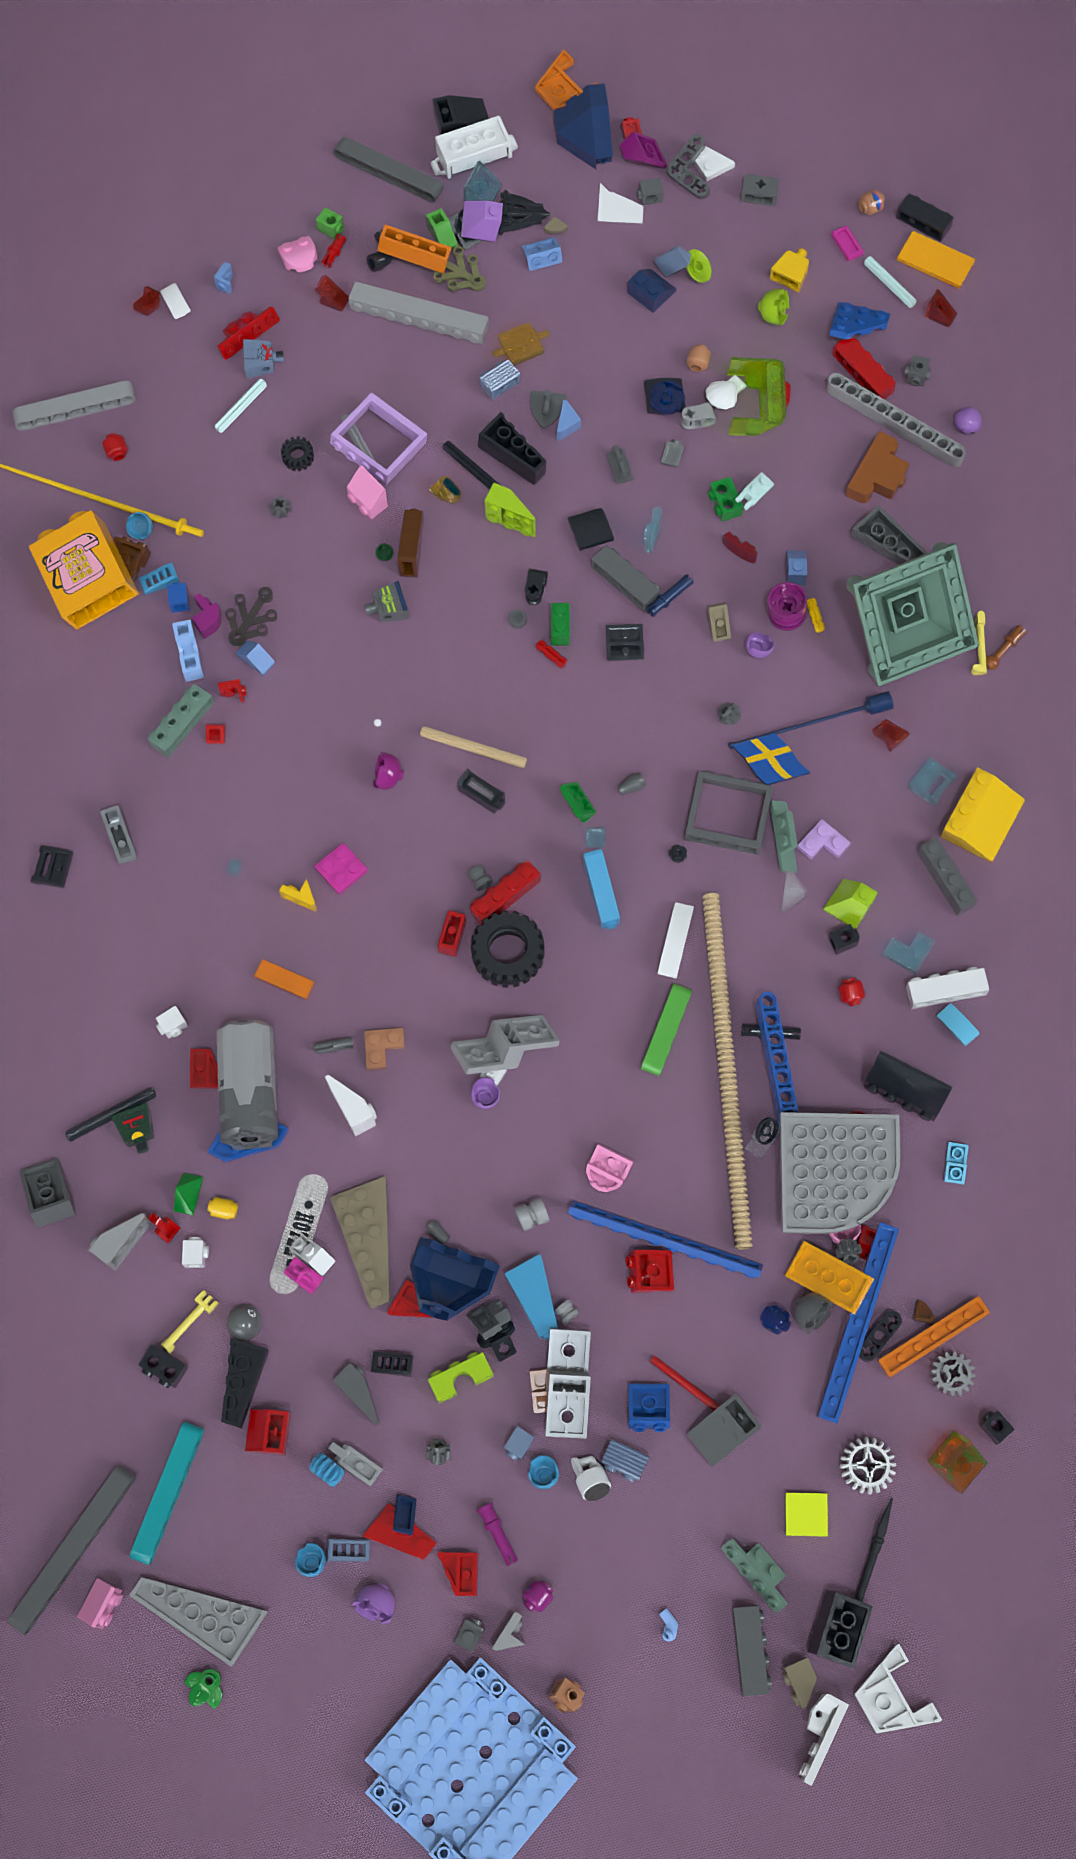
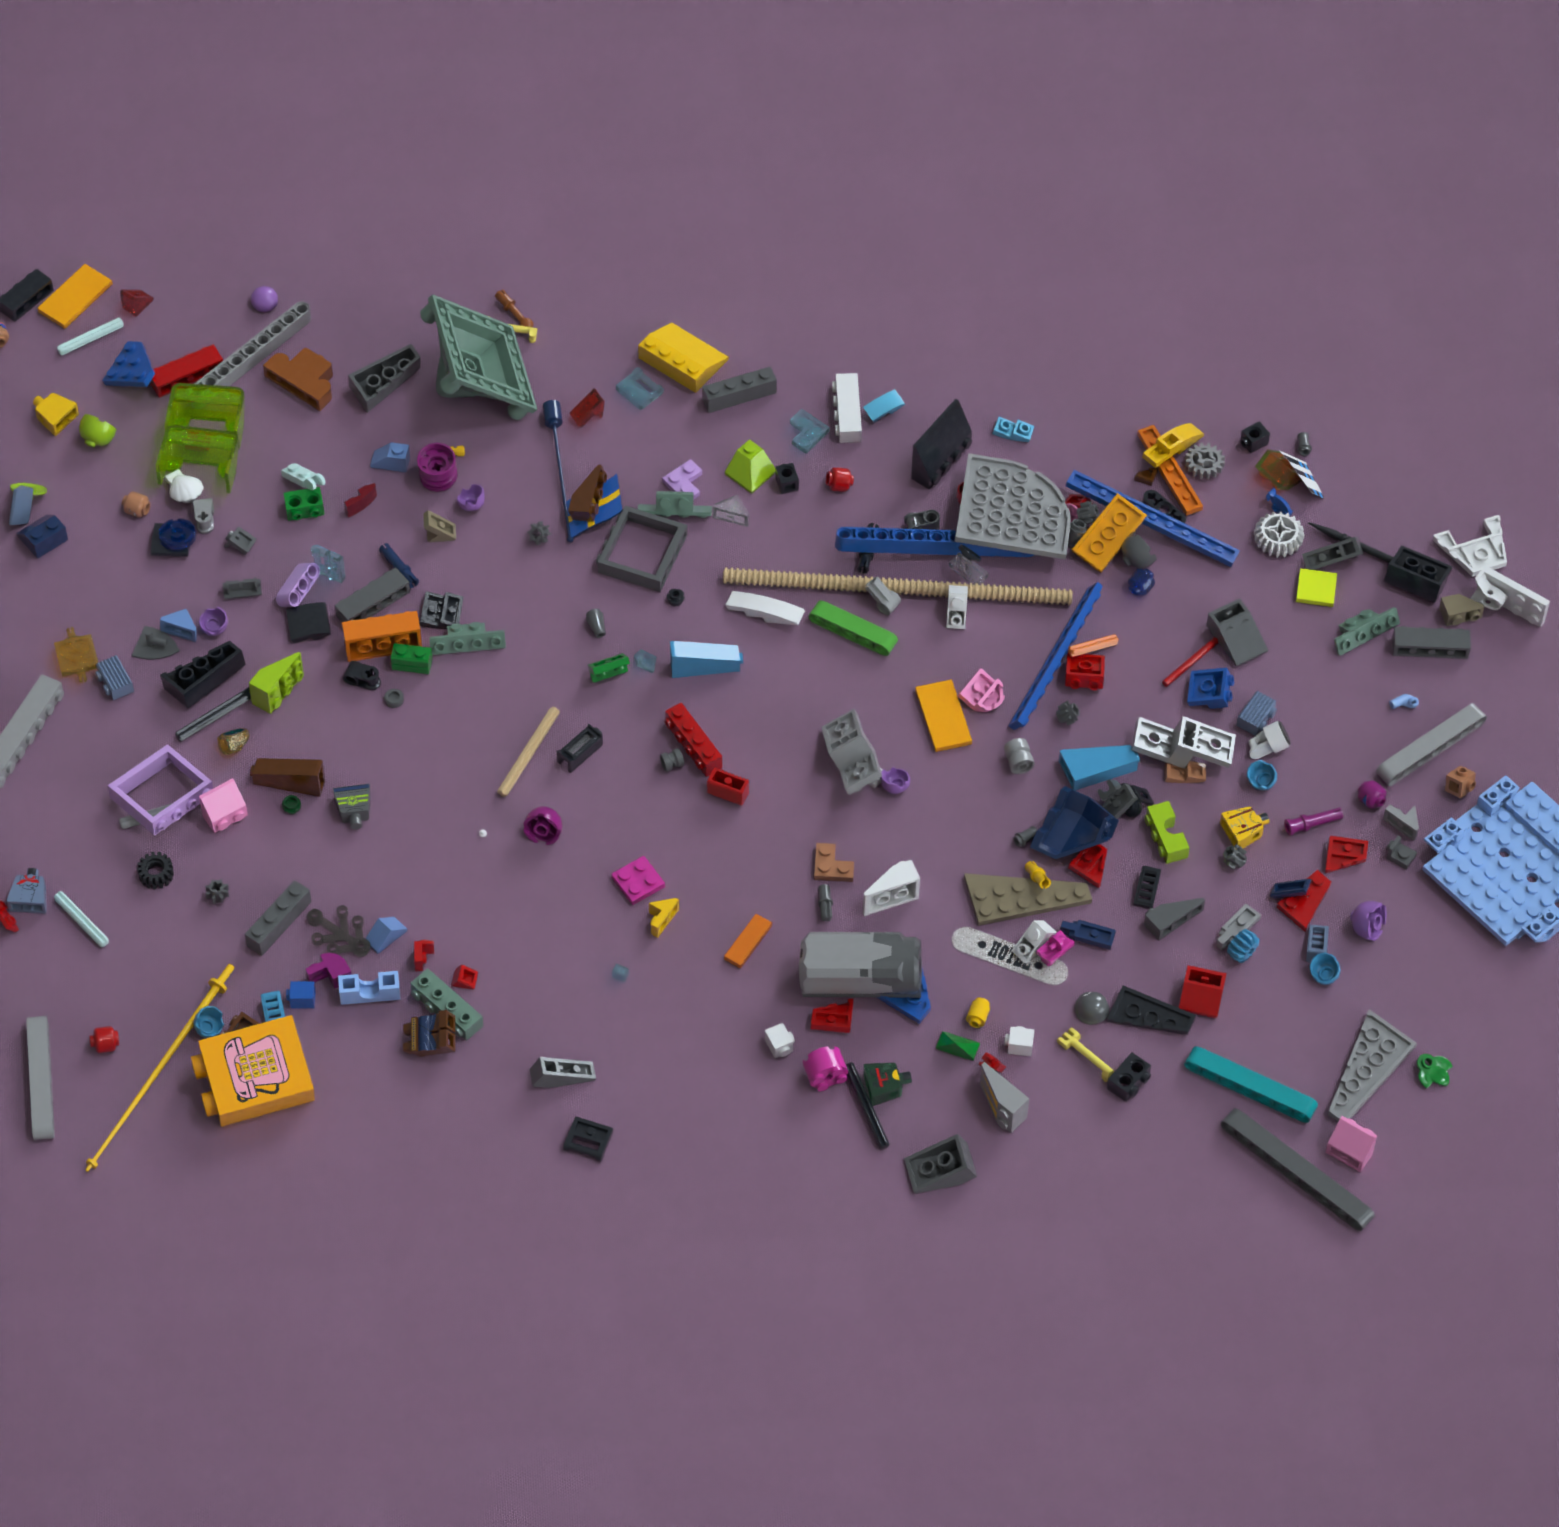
camera: 85 degrees left, 15 degrees down
(138, 1068) = (825, 1068): none -> dark pink brick
(140, 709) = (430, 1034): none -> reddish brown hips
(256, 562) = (278, 917): none -> dark grey brick
(328, 1310) = (1089, 933): none -> dark blue hinge
(387, 1248) = (1037, 874): none -> yellow pin
(478, 1459) = (1243, 825): none -> yellow torso
(507, 925) = (753, 721): black tyre -> none
(518, 1444) = (1233, 793): sand blue brick -> none
(551, 653) = (440, 673): red axle -> none
(566, 1312) = (1115, 739): light grey wheel -> none
(574, 447) = (213, 621): none -> medium lavender hair
(575, 1133) = (943, 715): none -> light orange tile
(578, 592) = (377, 635): none -> orange brick
(593, 1258) = (1068, 713): none -> dark grey gear
(595, 670) = (467, 638): none -> sand green bracket
(615, 1660) = (1431, 744): none -> light grey beam
(620, 513) = (297, 584): none -> lavender beam
(684, 1276) = (1093, 645): none -> orange axle
(706, 1056) = (886, 599): none -> light grey piece
(709, 1129) = (957, 607): none -> white slope
(773, 748) = (587, 496): none -> reddish brown slope
(811, 1078) = (922, 520): none -> dark grey piece
(820, 373) = (207, 403): none -> clear neon green windscreen
(826, 1242) = (1077, 530): none -> dark grey cone
(847, 243) = (34, 364): dark pink tile -> none
(851, 1531) = (1333, 553): none -> dark grey slope
(910, 1462) = (1278, 502): none -> blue piece
(918, 370) = (201, 326): dark grey brick -> none
(955, 1487) = (1305, 473): none -> sticker
(965, 1335) = (1172, 442): none -> yellow slope
(1000, 1484) = (1304, 446): none -> dark grey pin

